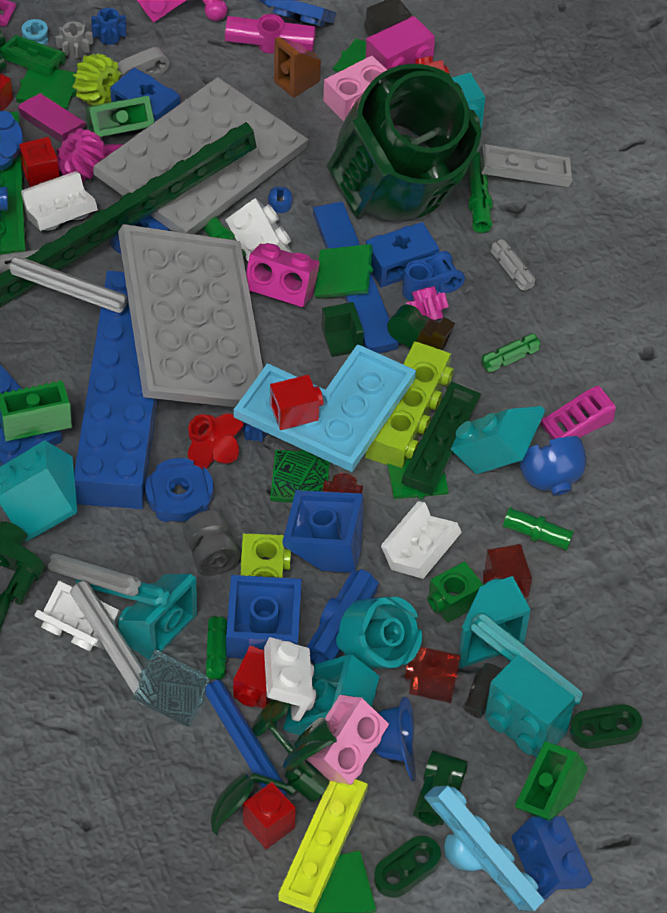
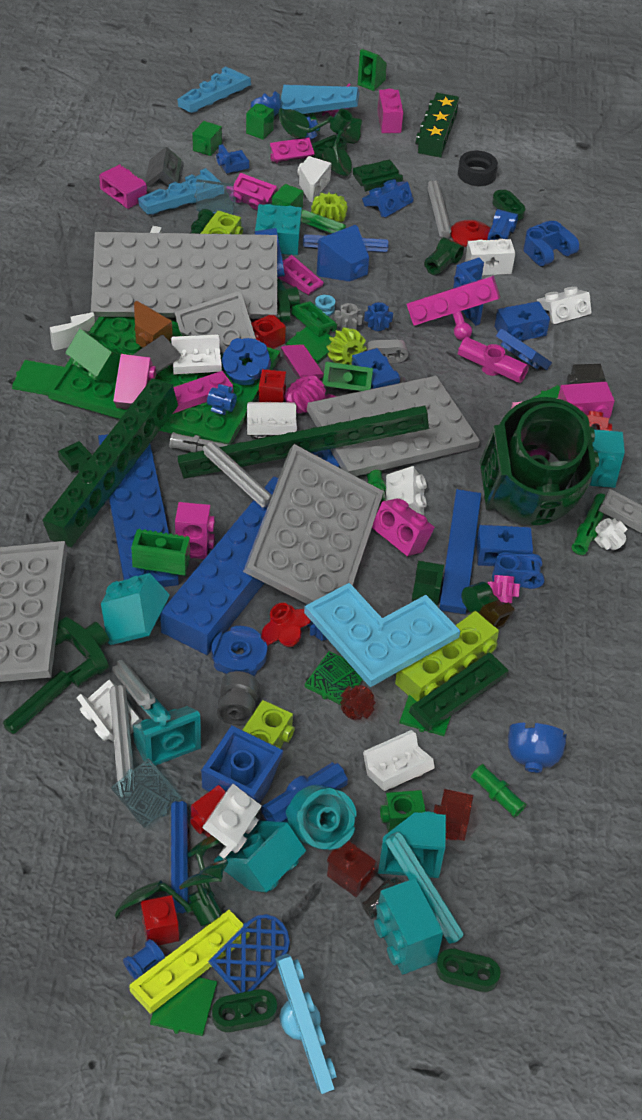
camera: 25 degrees right, 5 degrees down
(51, 361) = (197, 524): none -> dark pink brick
(216, 648) = (194, 781): green axle -> none
(275, 863) = (144, 959): none -> blue bush
(280, 206) = (440, 478): blue hinge -> none
(295, 67) = (497, 387): dark orange slope -> none
(295, 402) = (350, 616): red brick -> none
(326, 529) = (328, 723): blue slope -> none
(344, 271) = (452, 541): green piece -> none
(357, 734) = (241, 879): bright pink brick -> none
(398, 736) = (293, 904): blue piece -> none
(407, 805) = (243, 930): none -> blue window
(440, 771) = (313, 953): dark green piece -> none
(497, 438) = (499, 706): teal slope -> none
(508, 196) = (610, 534): none -> white gear
(510, 352) = (551, 649): green axle -> none
(513, 265) = (589, 586): light grey axle -> none
(551, 782) = (394, 995): green slope -> none
(551, 855) = (365, 1055): blue bracket -> none
(594, 402) = (590, 709): dark pink slope -> none

